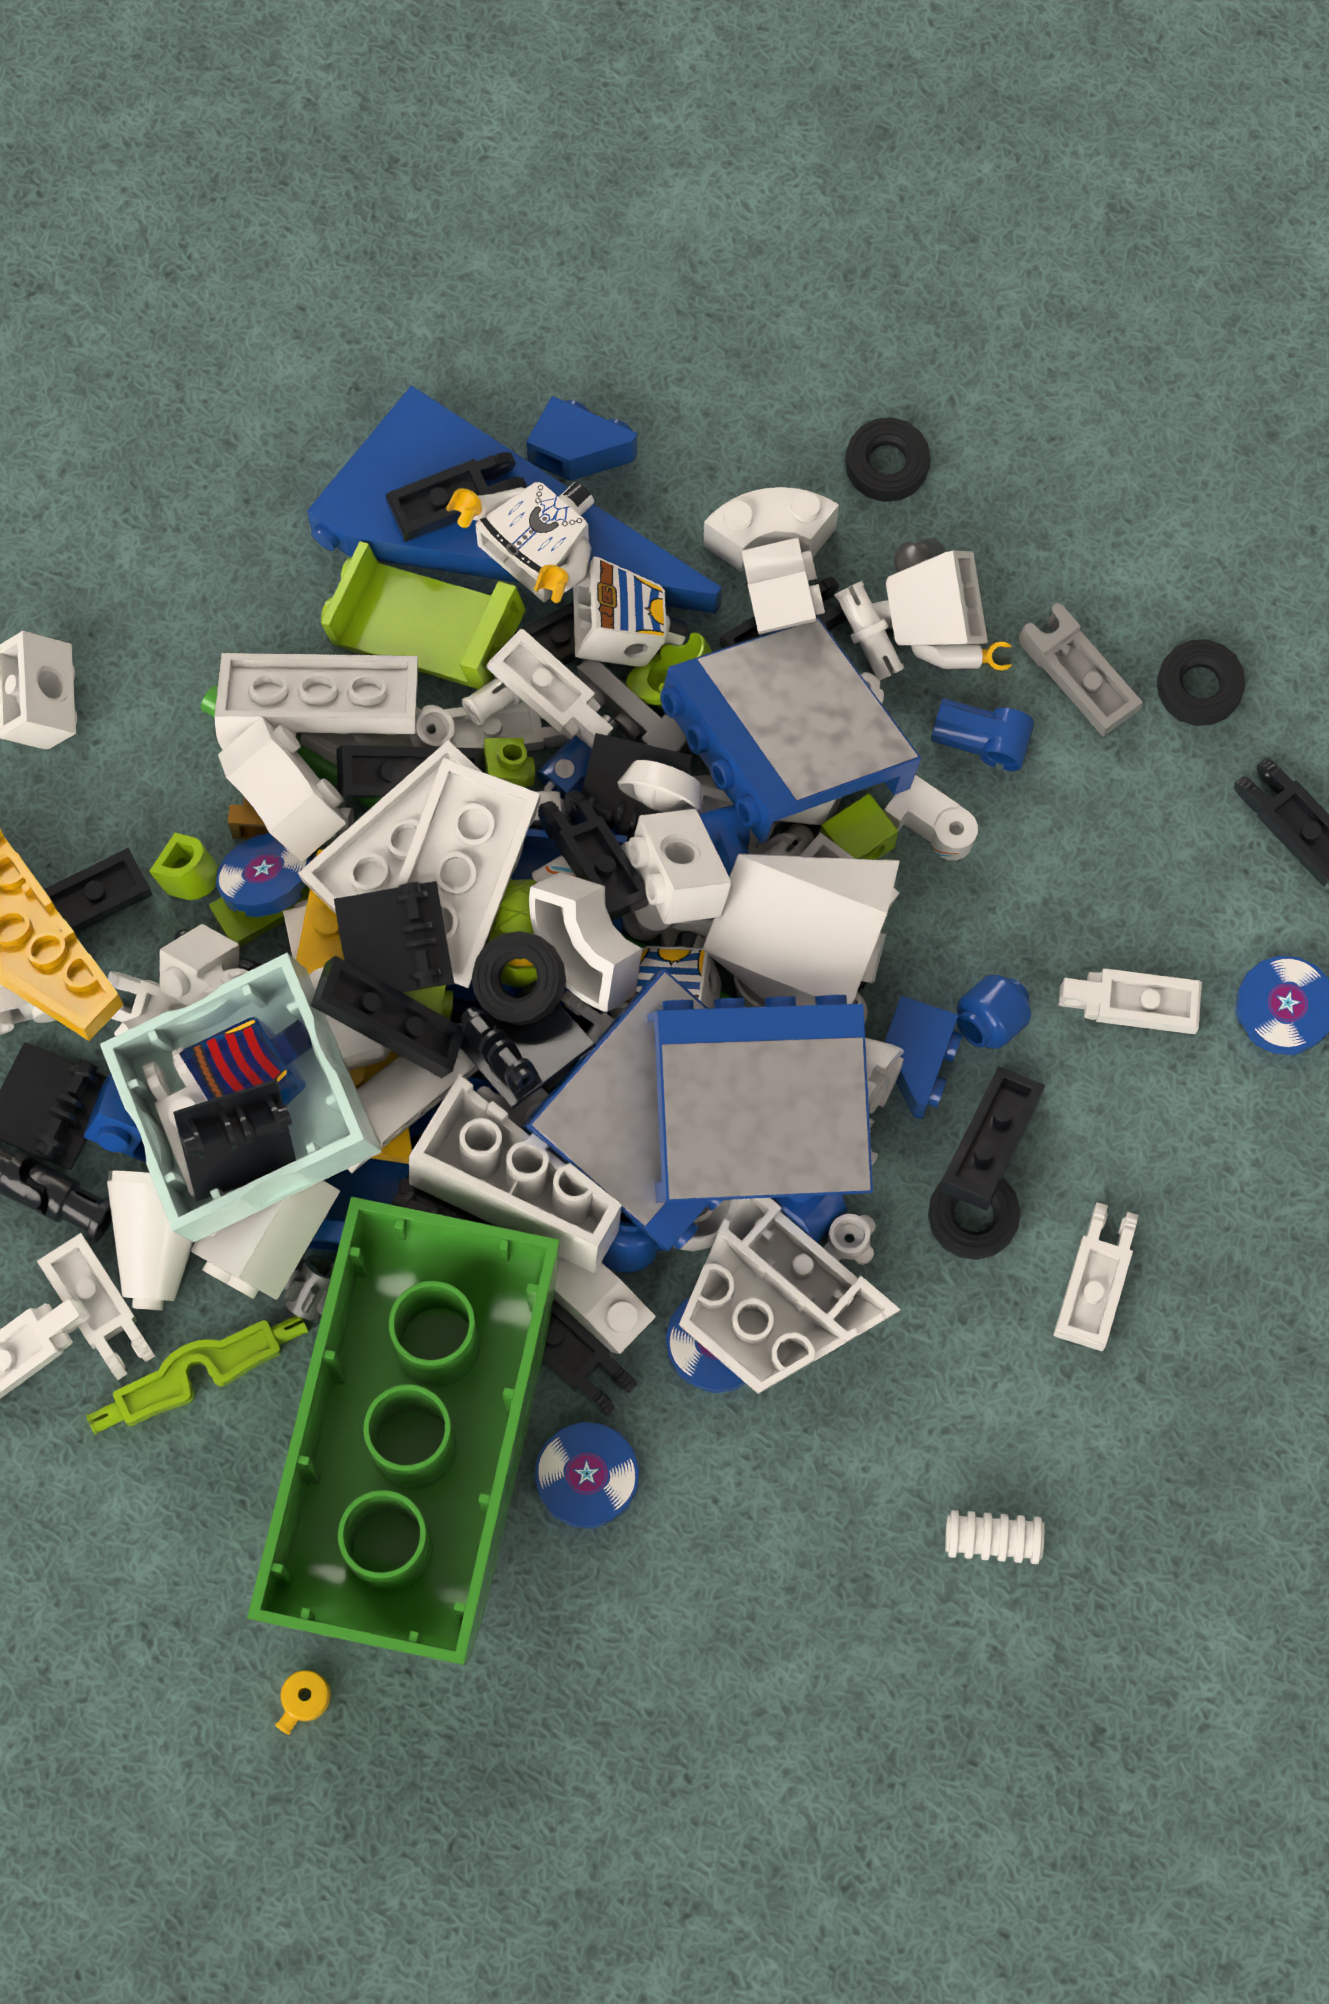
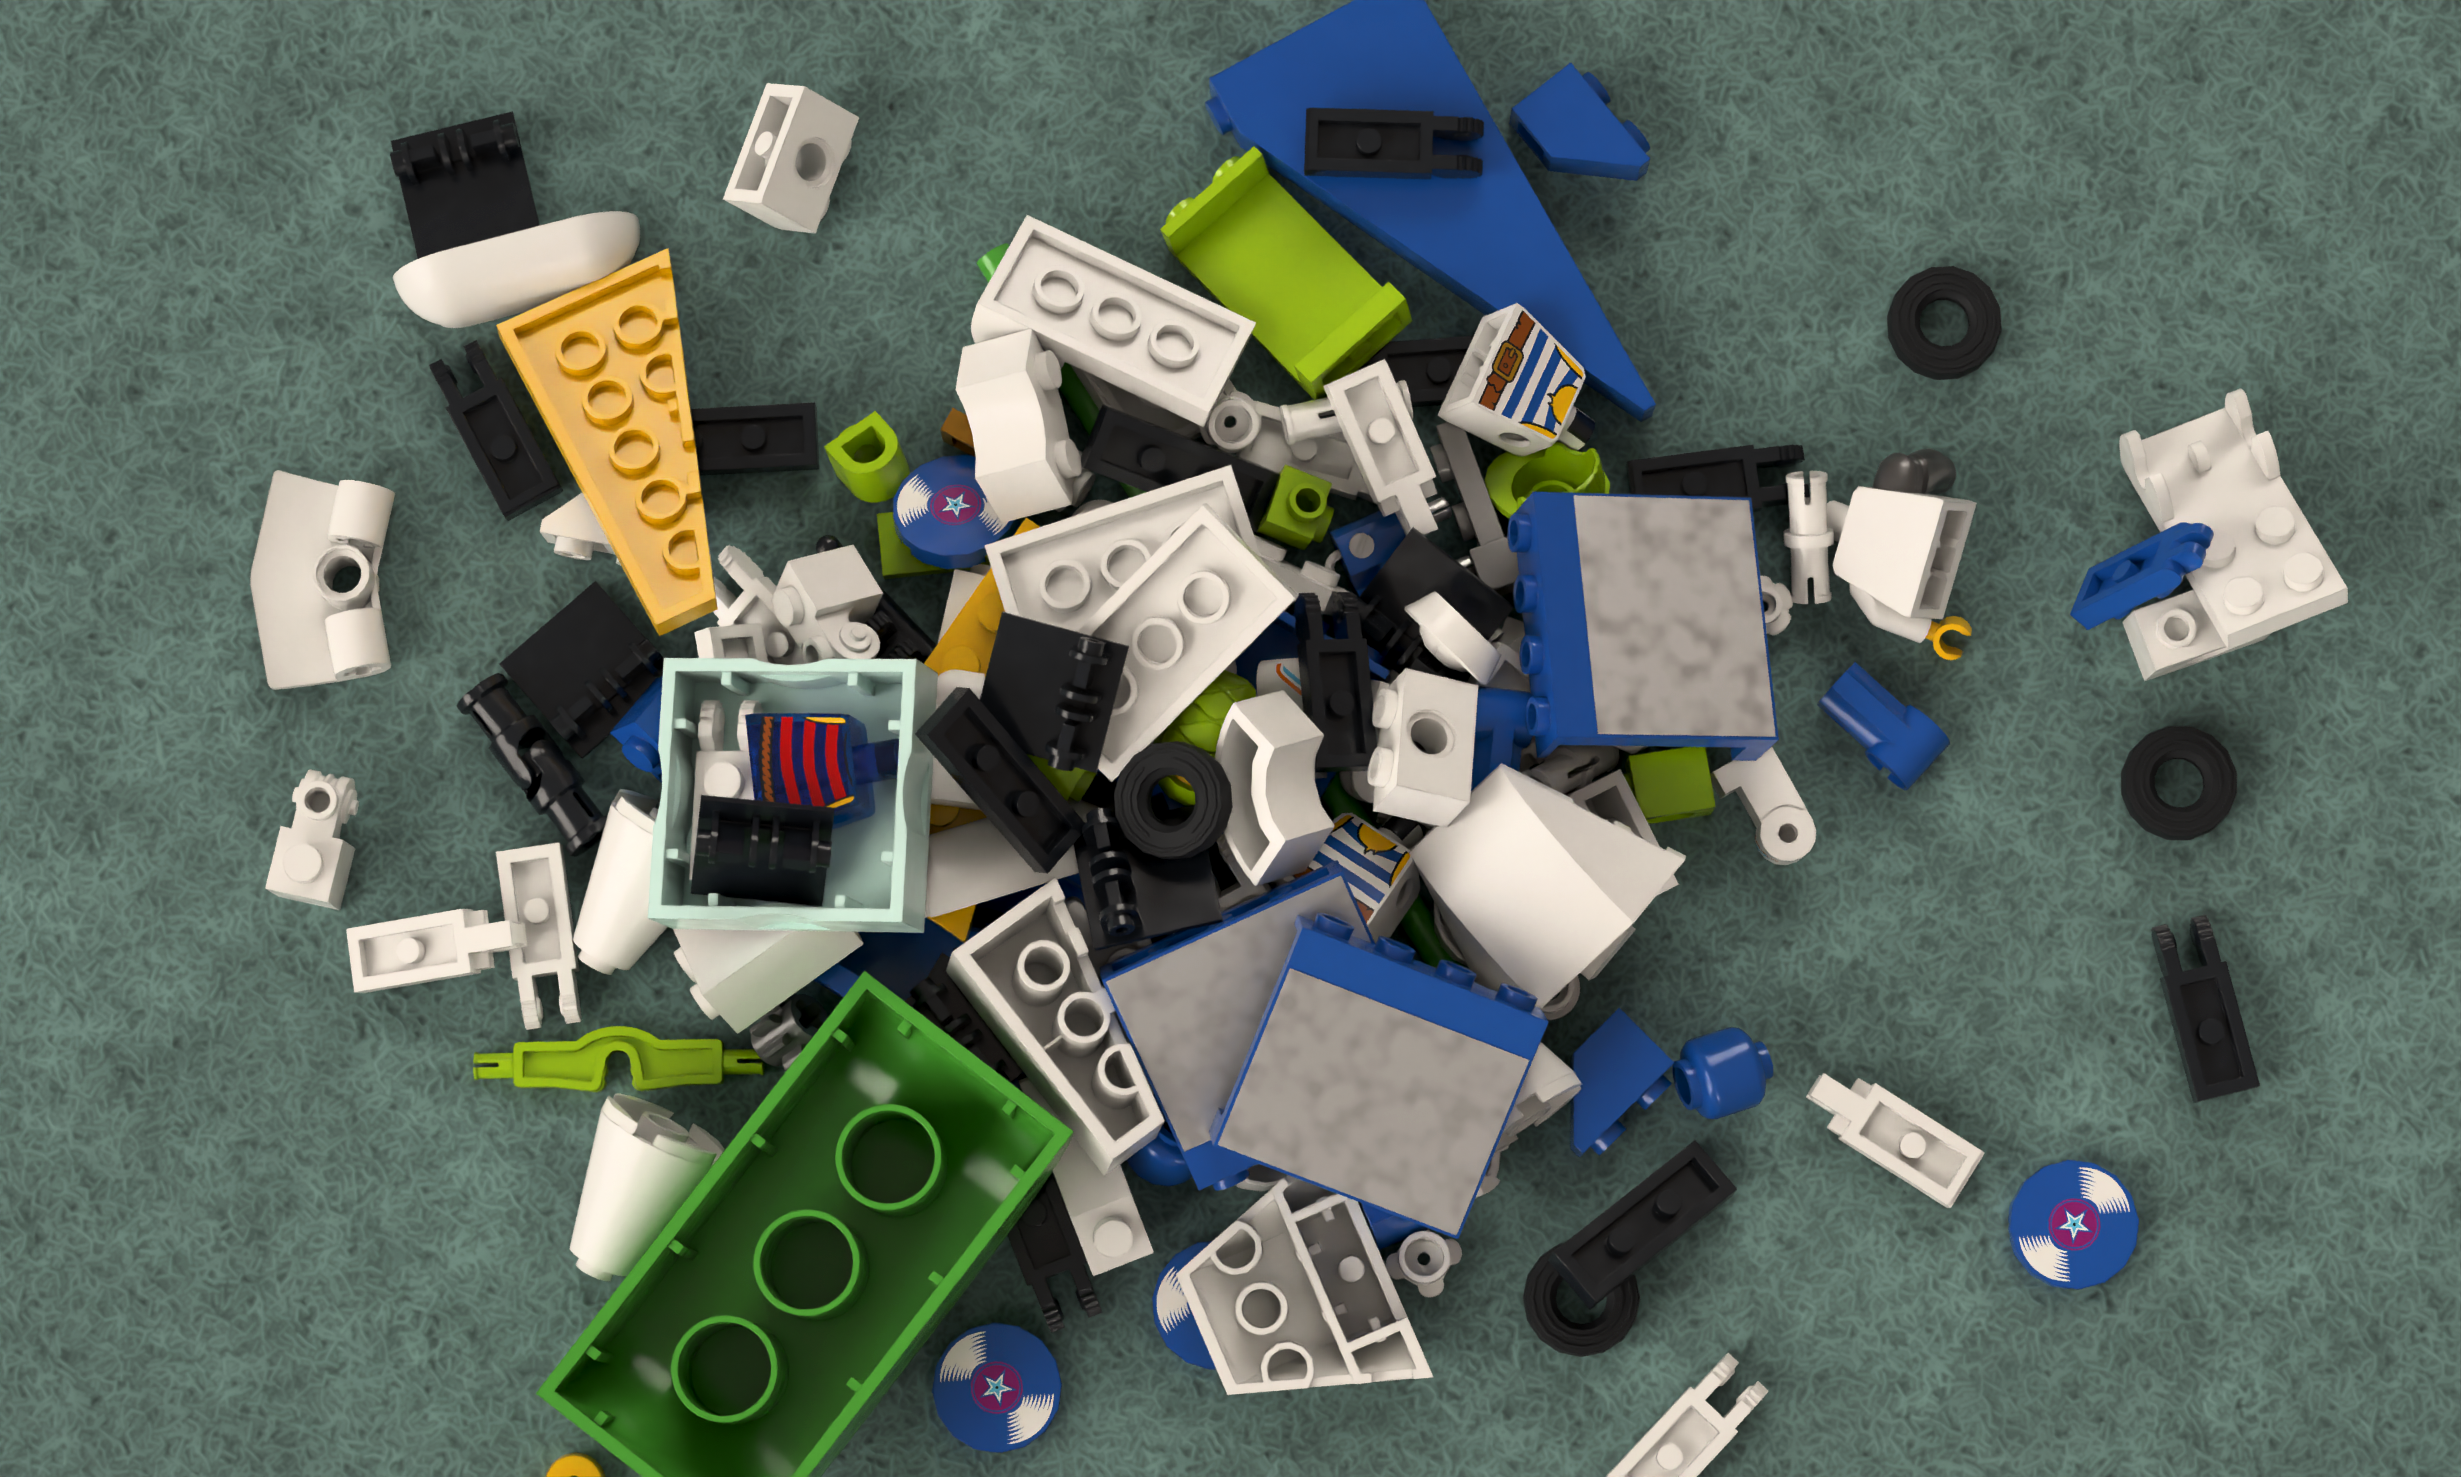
camera: 30 degrees right, 10 degrees up
(248, 1451) = (635, 1183): none -> white cone
(532, 534) = (1459, 242): white torso -> none
(768, 518) = (1756, 345): white brick -> none
(780, 585) = (1723, 443): white brick -> none
(1080, 671) = (2040, 705): light grey plate -> none
(1107, 547) = (2141, 573): none -> blue hinge
(1149, 490) = (2264, 555): none -> white hinge
(1160, 571) = (2174, 635): none -> white brick

